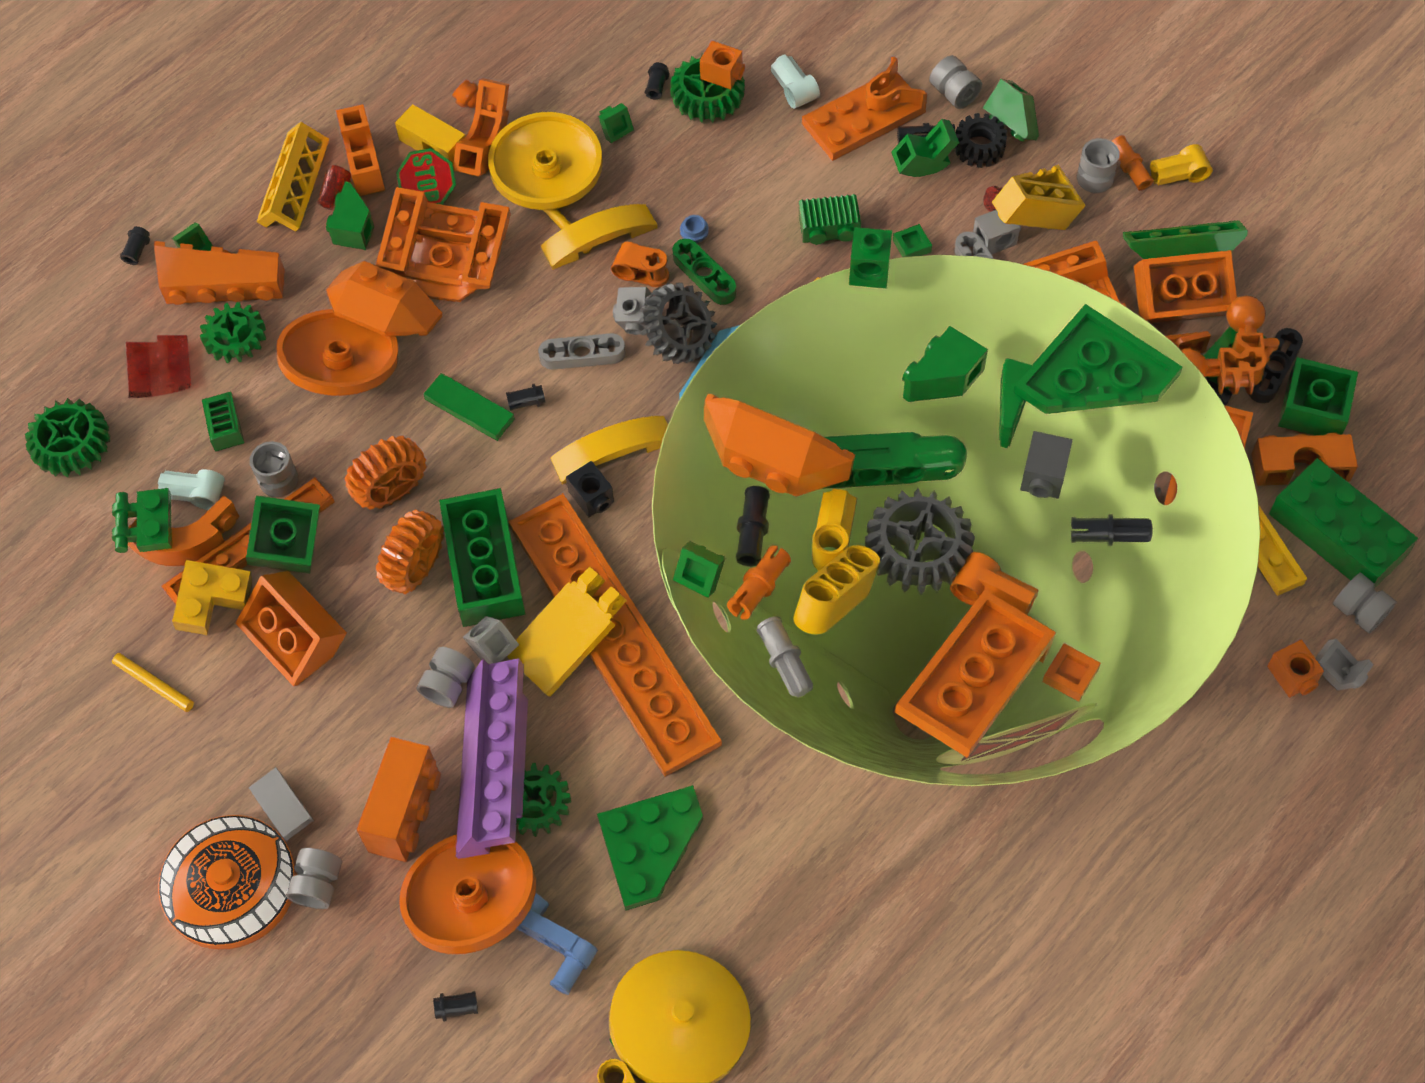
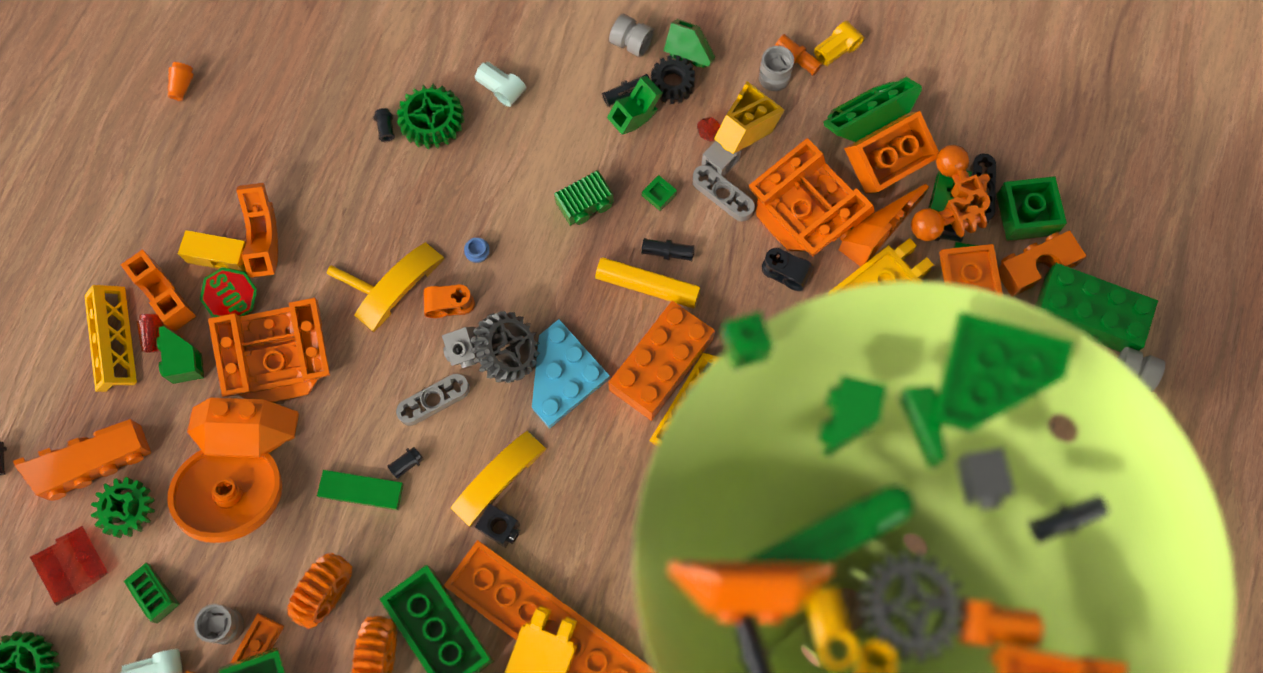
camera: 25 degrees left, 10 degrees up
(193, 235) = (47, 435): green tile -> none
(466, 94) = (228, 199): orange plate -> none
(545, 160) = (324, 238): yellow dish -> none
(615, 122) = (367, 177): green tile -> none
(705, 283) = (482, 283): green beam -> none
(721, 65) = (432, 87): orange brick -> none
(865, 113) = (568, 90): orange plate -> none

